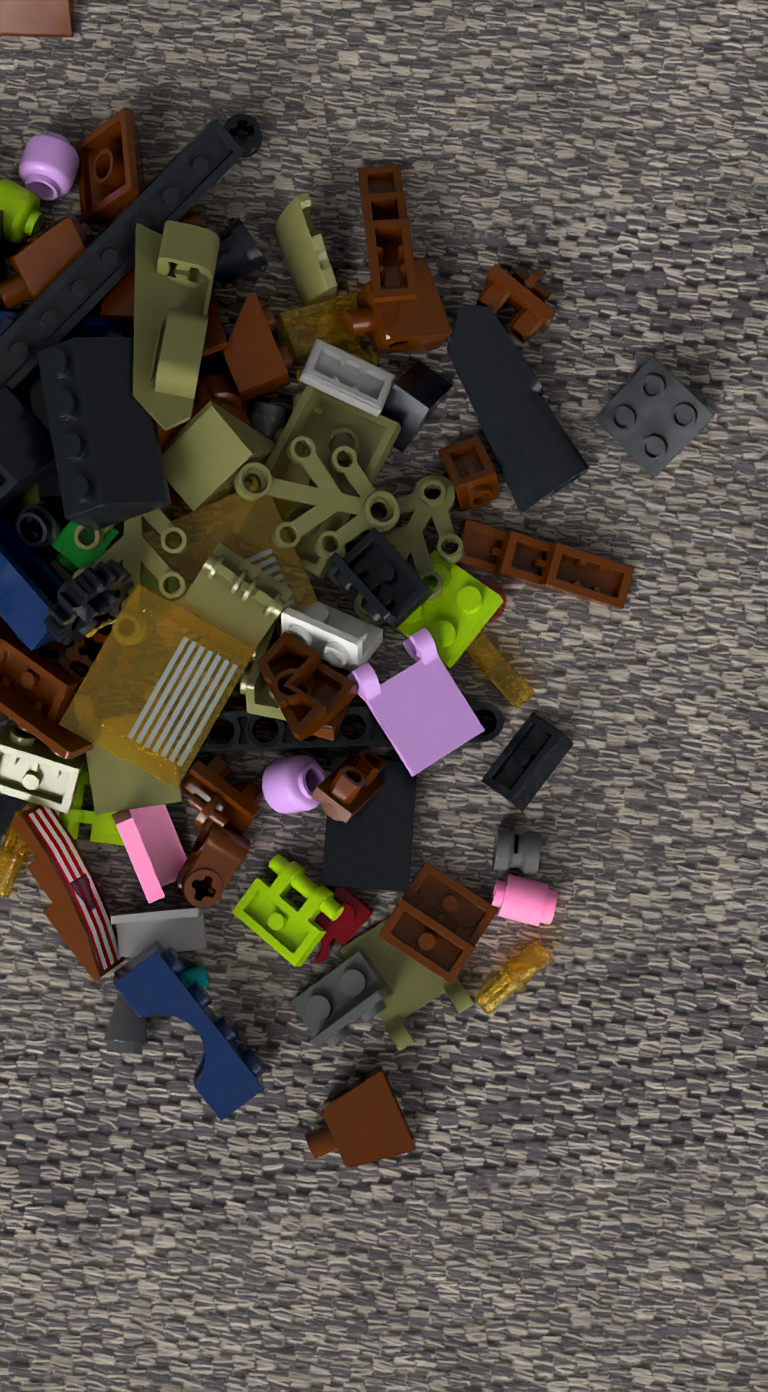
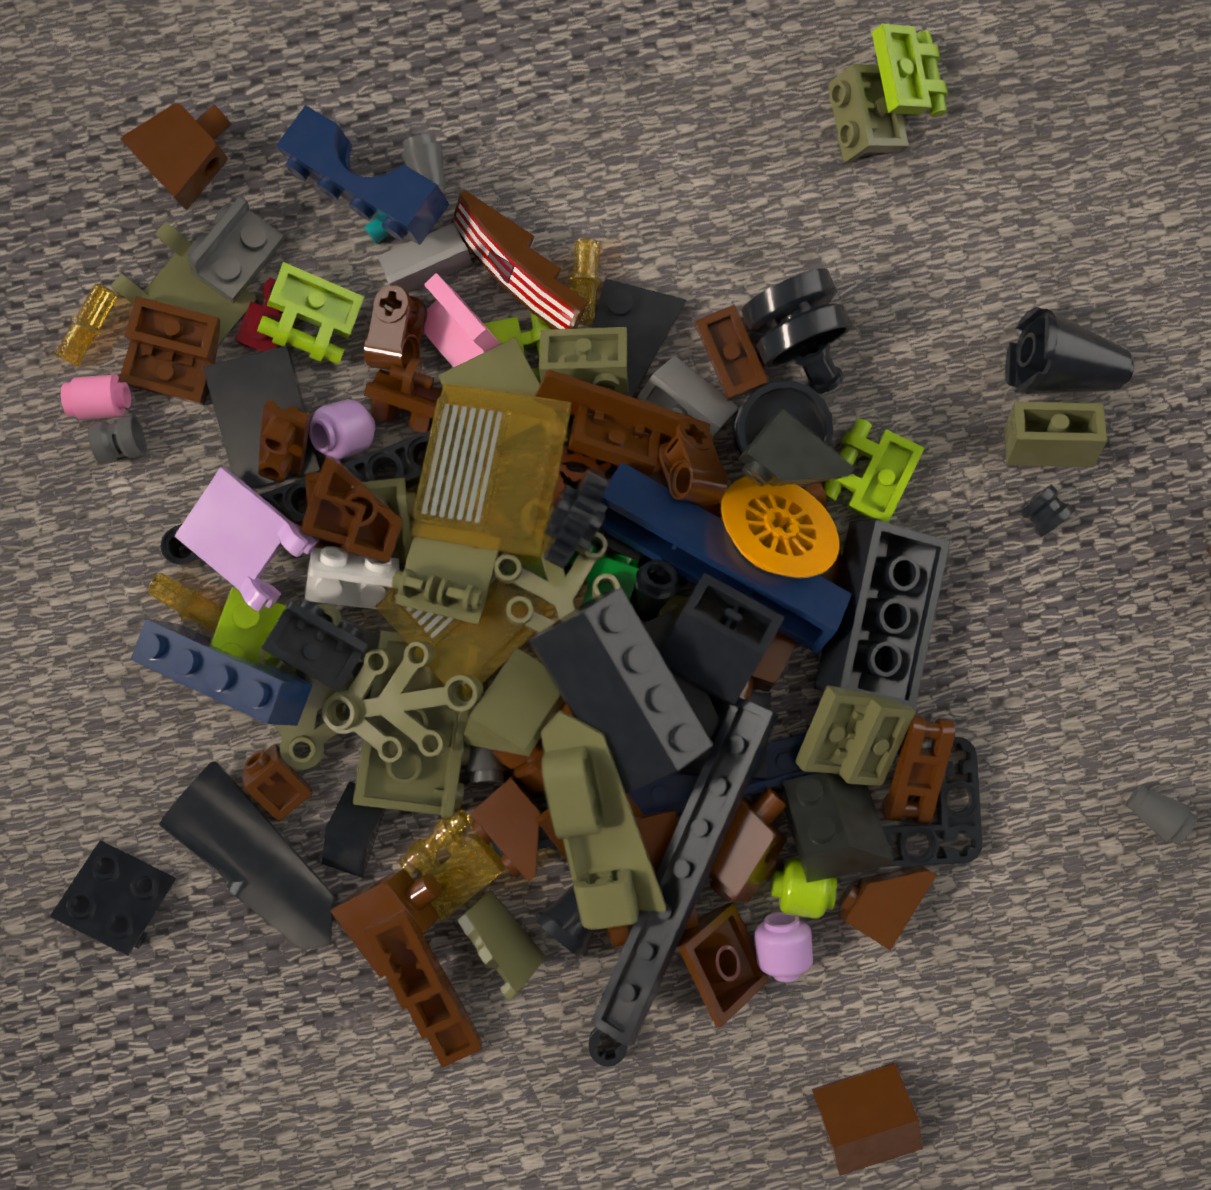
camera: 165 degrees right, 0 degrees up
(347, 377) = (416, 831): light grey plate -> none
(460, 561) = (234, 681): none -> dark blue arch
(524, 295) = (279, 976): reddish brown hips -> none
(527, 761) = (137, 528): black slope -> none
(544, 564) = (167, 719): reddish brown slope -> none

